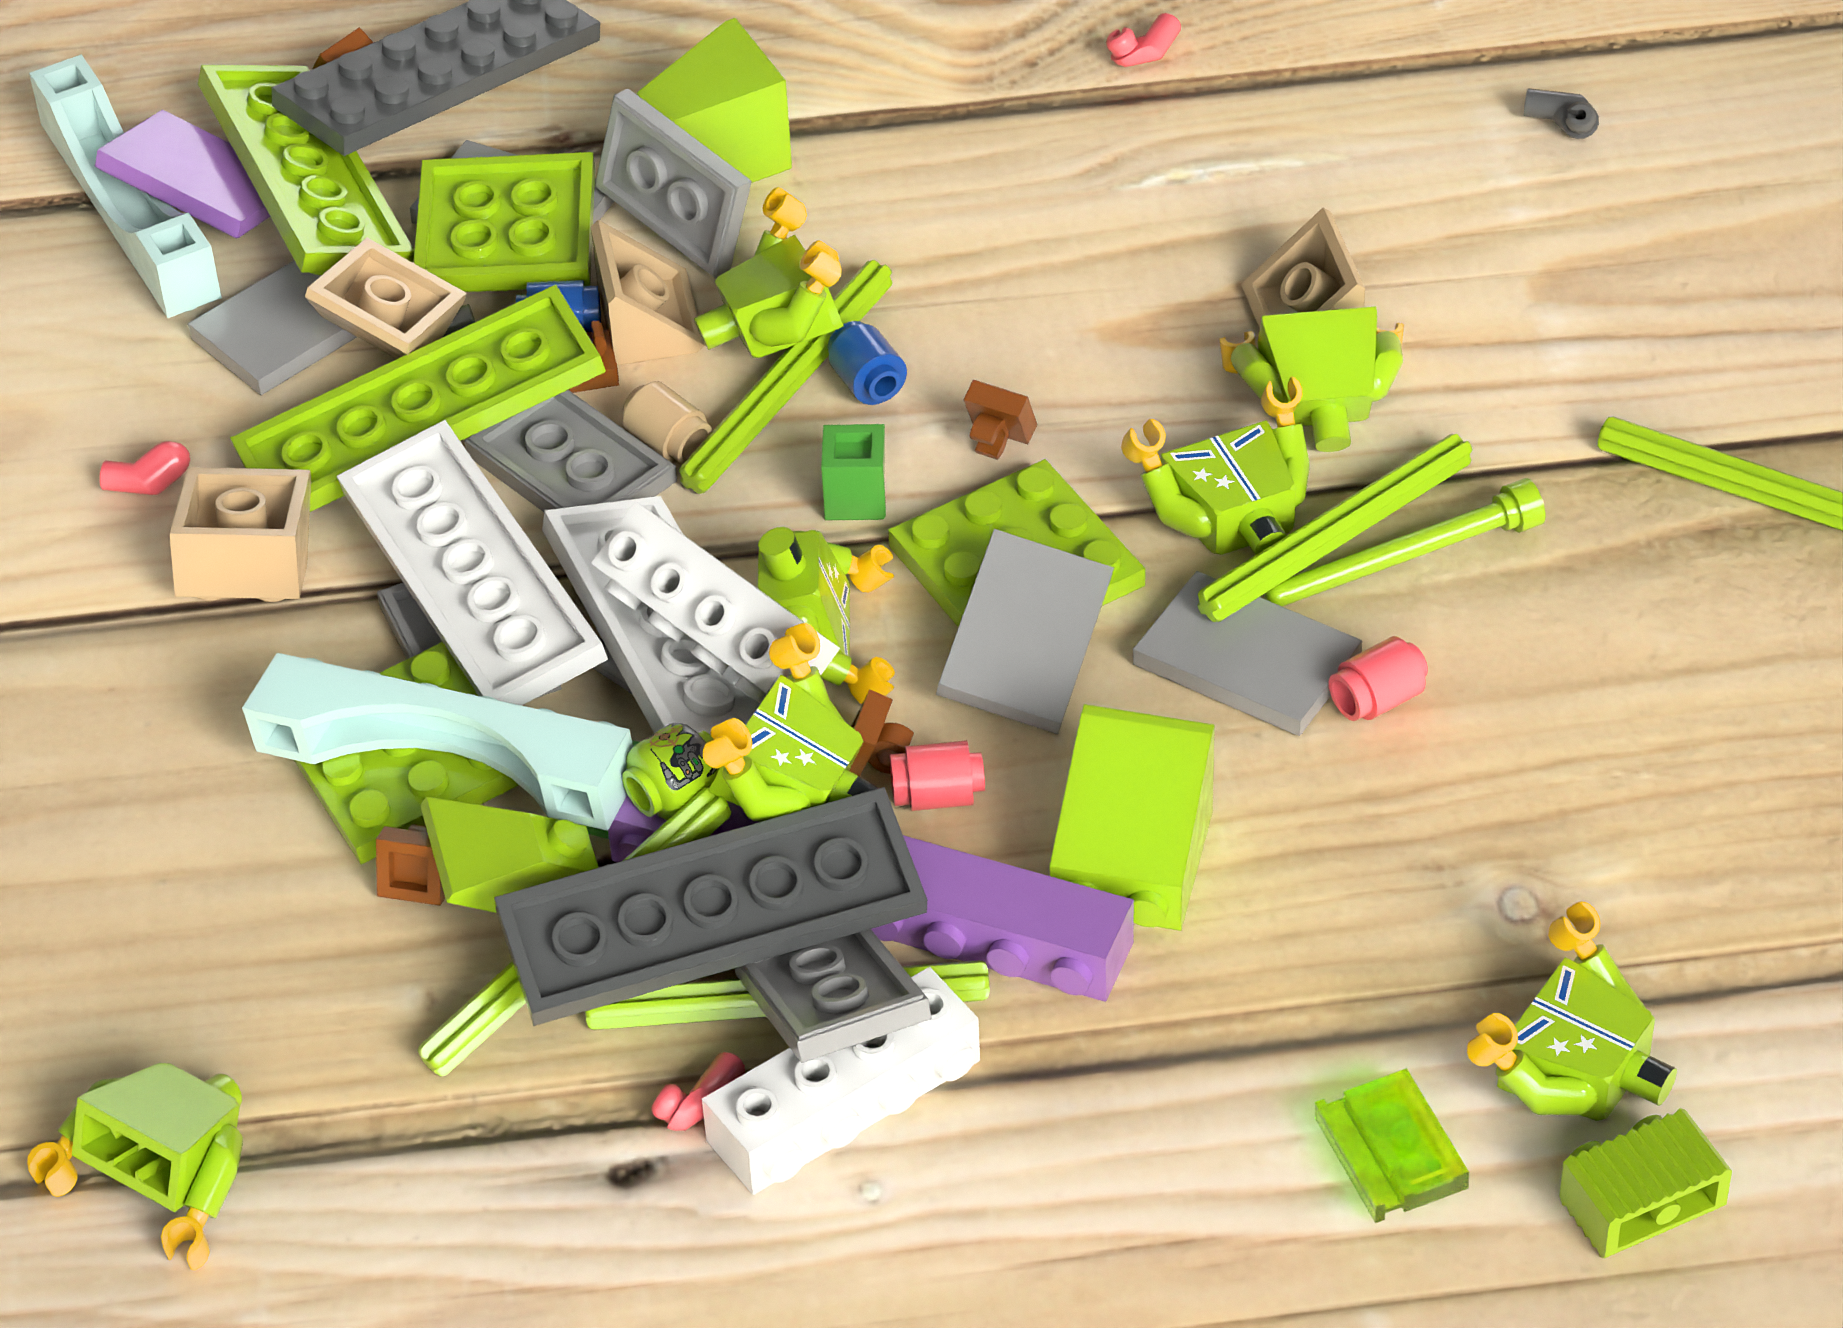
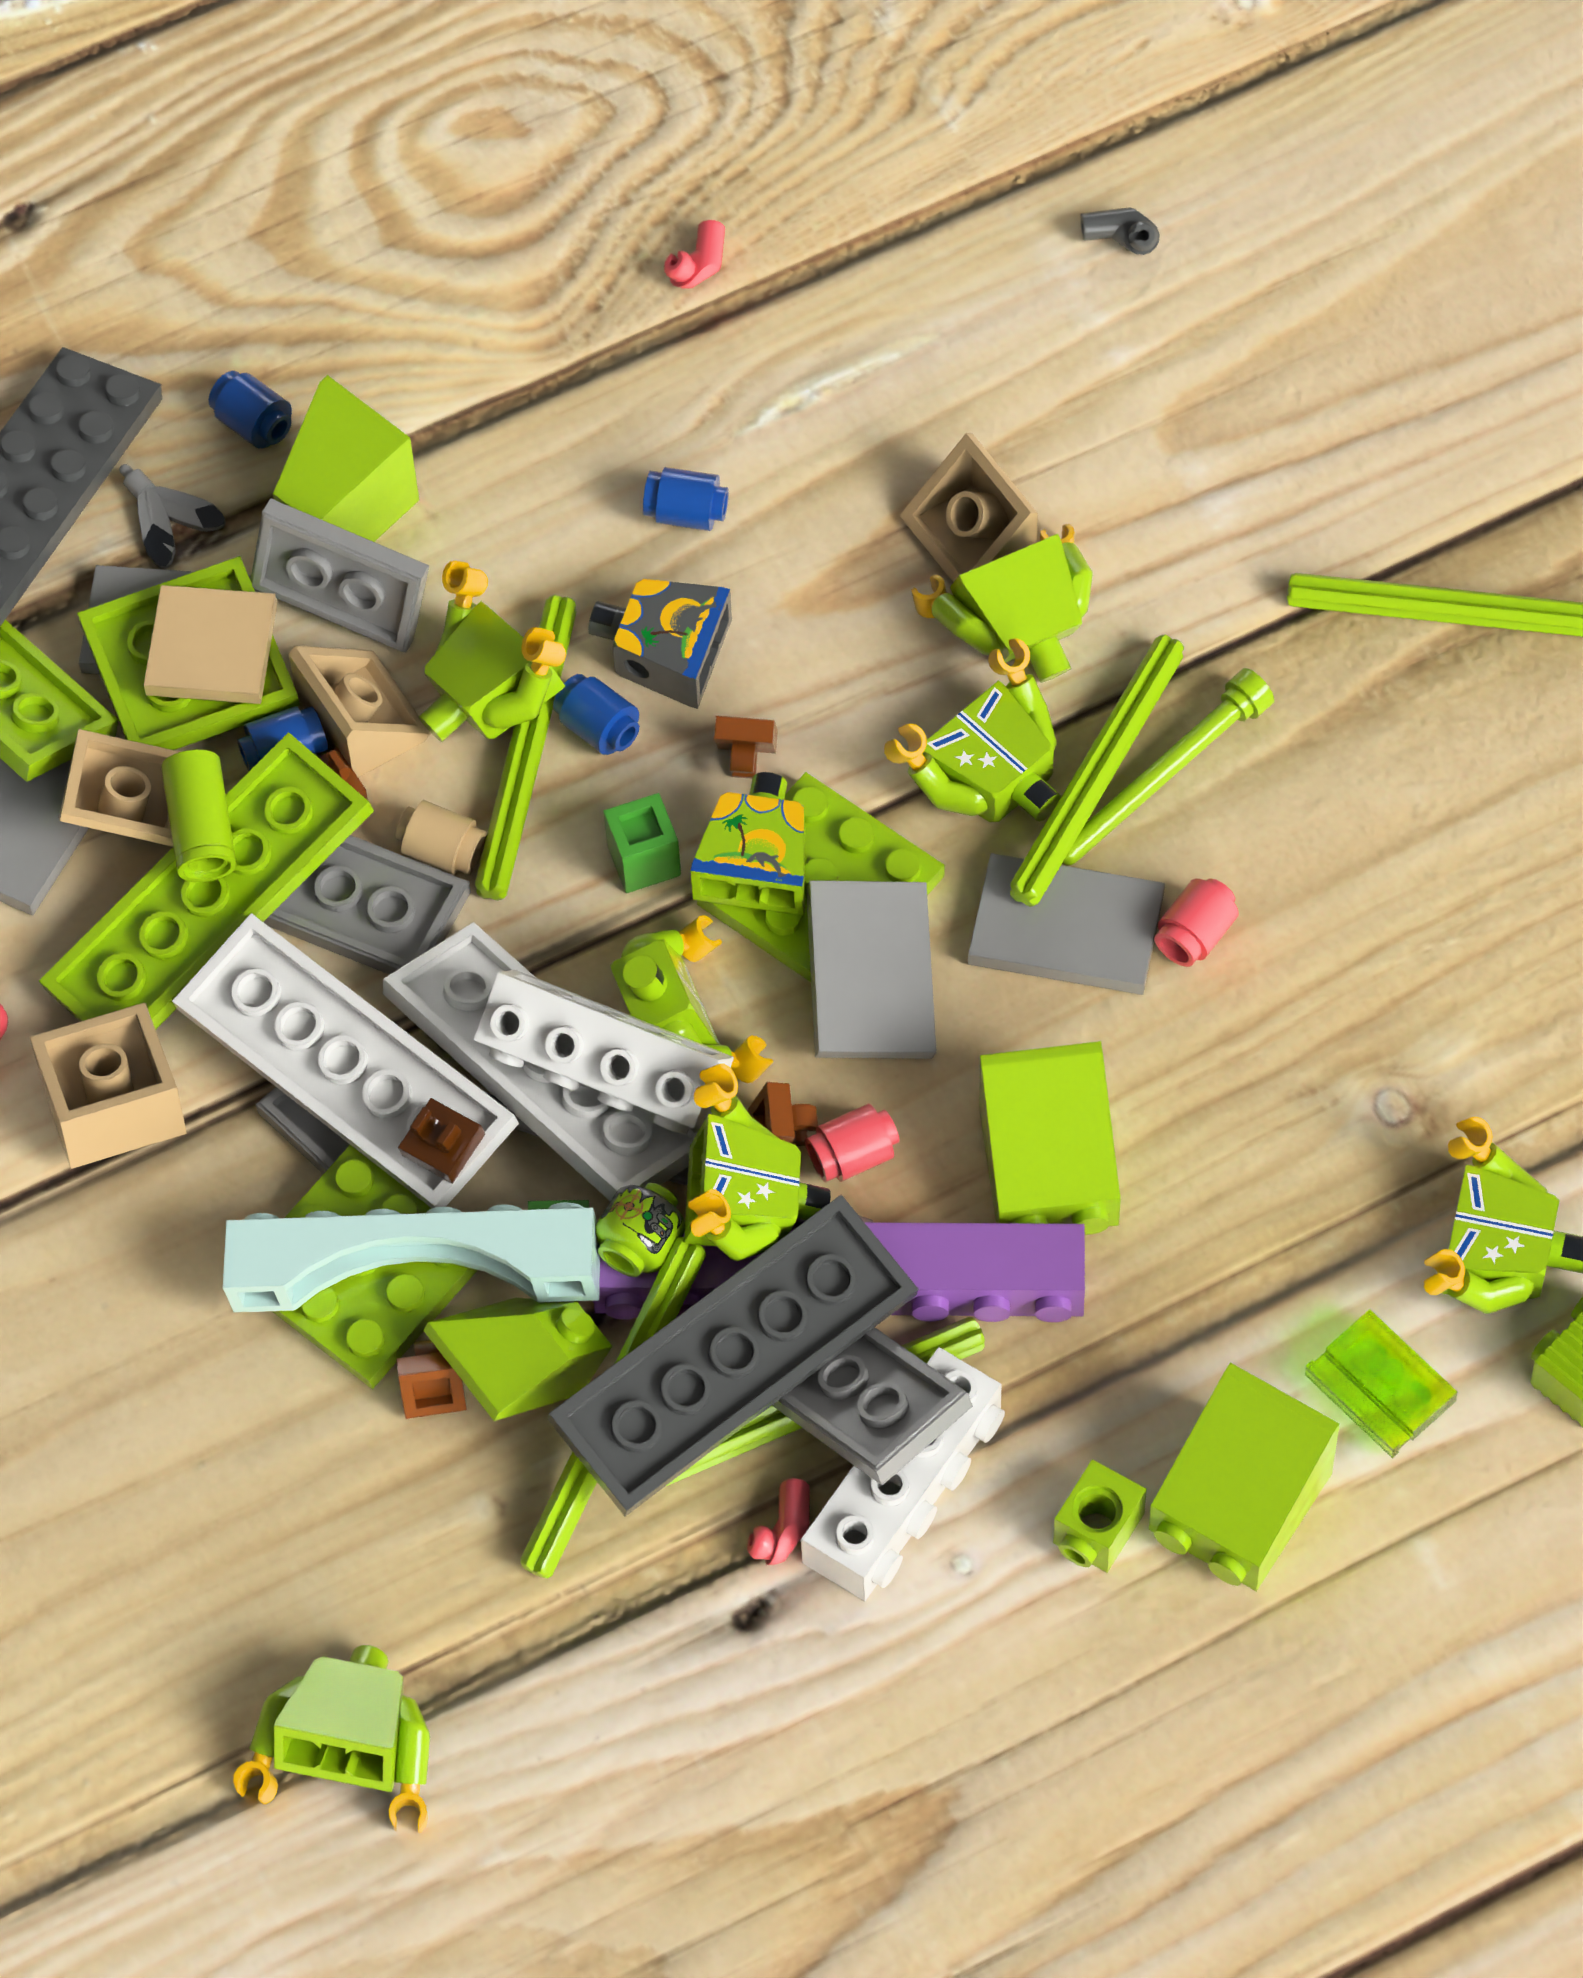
camera: 20 degrees left, 15 degrees up
(434, 325) = (198, 815): none -> lime pin
(518, 642) = (441, 1140): none -> reddish brown tile
(526, 208) = (210, 644): none -> tan tile
(553, 113) = (159, 506): none -> light grey piece
(660, 45) = (250, 409): none -> blue brick
(952, 494) = (753, 850): none -> torso
(966, 317) = (667, 636): none -> dark grey torso
(1036, 215) = (685, 498): none -> blue brick
(1042, 1159) = (1102, 1493): none -> lime brick
(1199, 1181) = (1244, 1478): none -> lime slope

